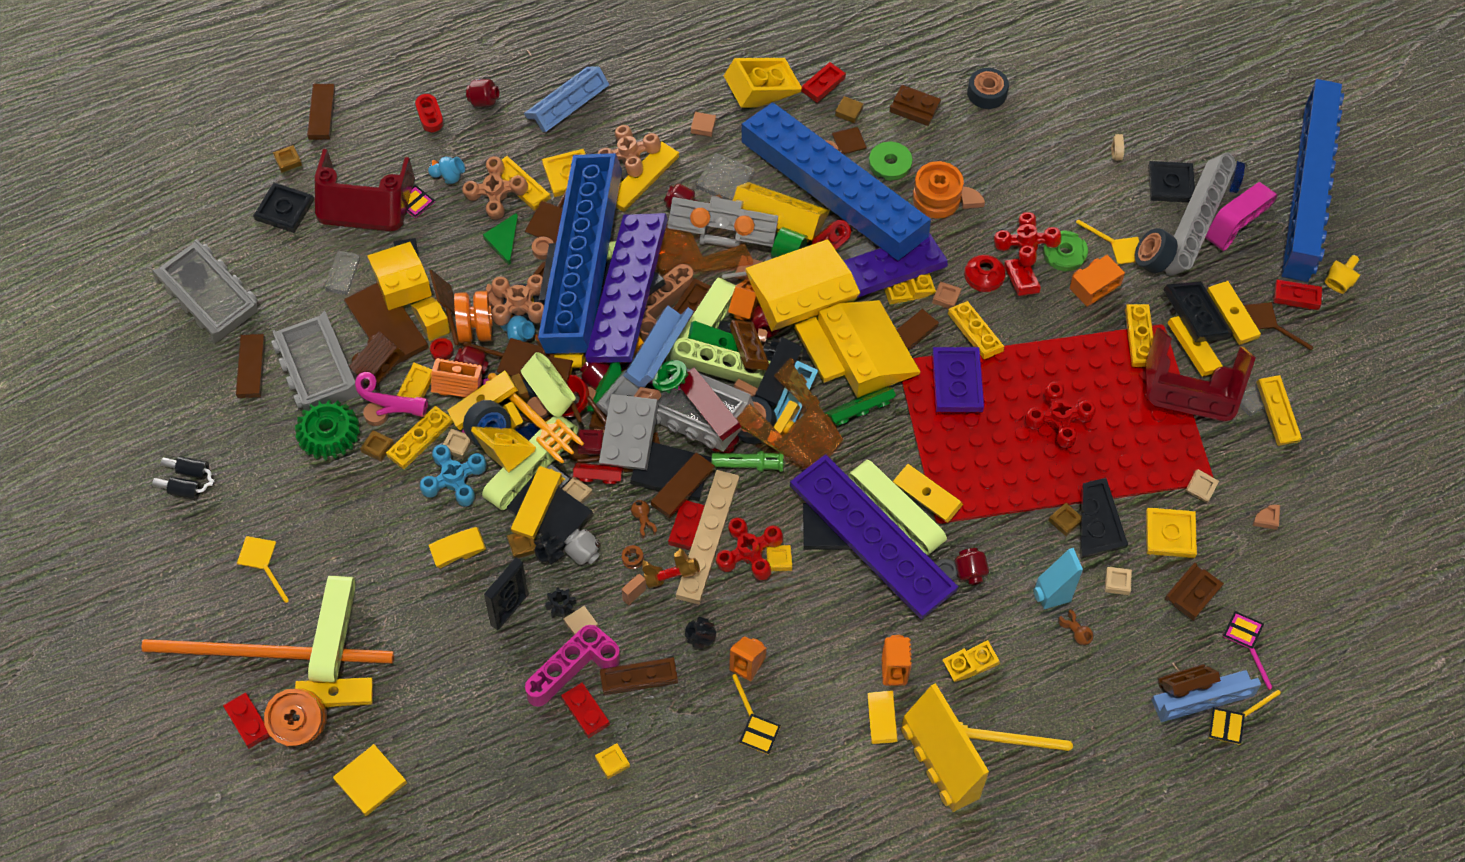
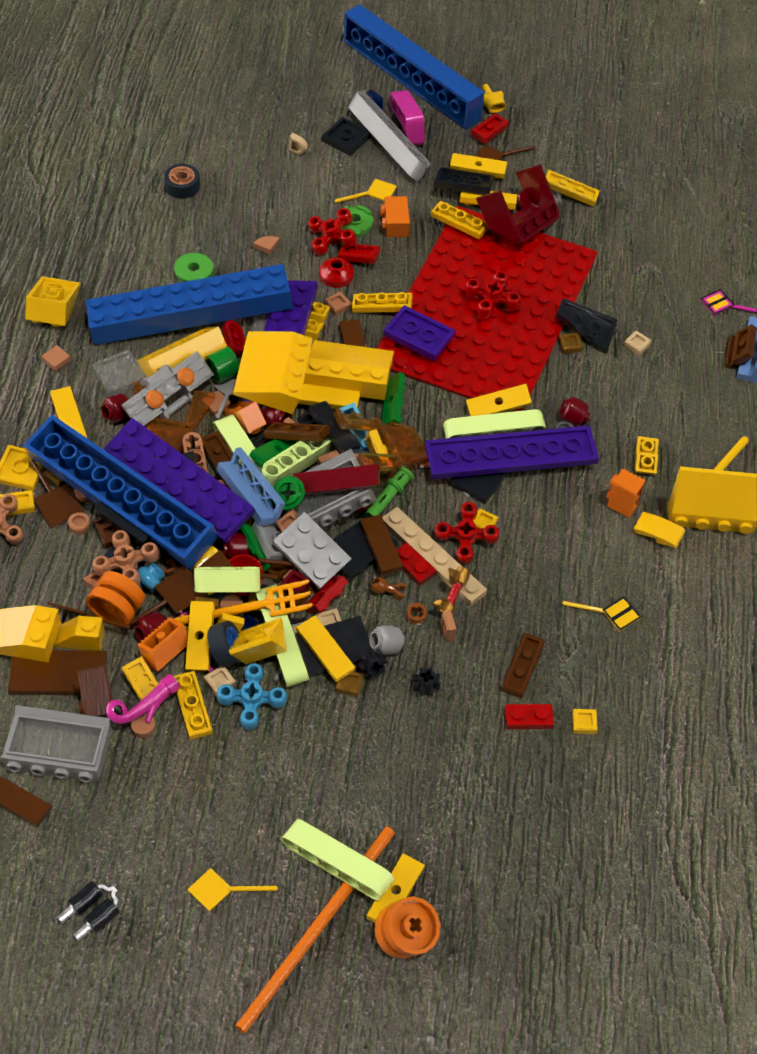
camera: 60 degrees left, 5 degrees down
(246, 720) = (374, 976): red plate -> none
(323, 443) = (136, 782): green gear -> none
(369, 780) = (493, 905): yellow tile -> none
(376, 445) = (175, 740): pearl gold tile -> none
(442, 349) = (118, 645): red tile -> none
(457, 546) = (322, 728): yellow slope -> none
(502, 238) = (46, 545): green tile -> none
(506, 593) = (404, 706): black tile -> none
(569, 668) = (486, 708): dark pink beam -> none
(579, 619) = (450, 679): tan tile -> none
(630, 150) = (39, 411): nougat gear -> none
(700, 633) = (513, 607): black gear -> none
(747, 657) = (560, 583): orange slope -> none
(823, 82) = (88, 266): red plate -> none
(849, 109) = (125, 266): pearl gold tile -> none
(849, 140) = (151, 280): reddish brown piece -> none
(915, 105) = (157, 228): reddish brown plate -> none
(938, 189) = (247, 251): orange wheel -> none
(1059, 581) = (627, 364): medium azure slope -> none
(1081, 633) = (667, 384): dark orange arm -> none
(1156, 250) = (393, 168): black wheel -> none
(1171, 532) = (620, 295): yellow tile -> none
(1194, 591) = (675, 308): reddish brown plate -> none
(1202, 486) = (598, 258): tan tile -> none
(1268, 517) = (644, 241): nougat tile -> none

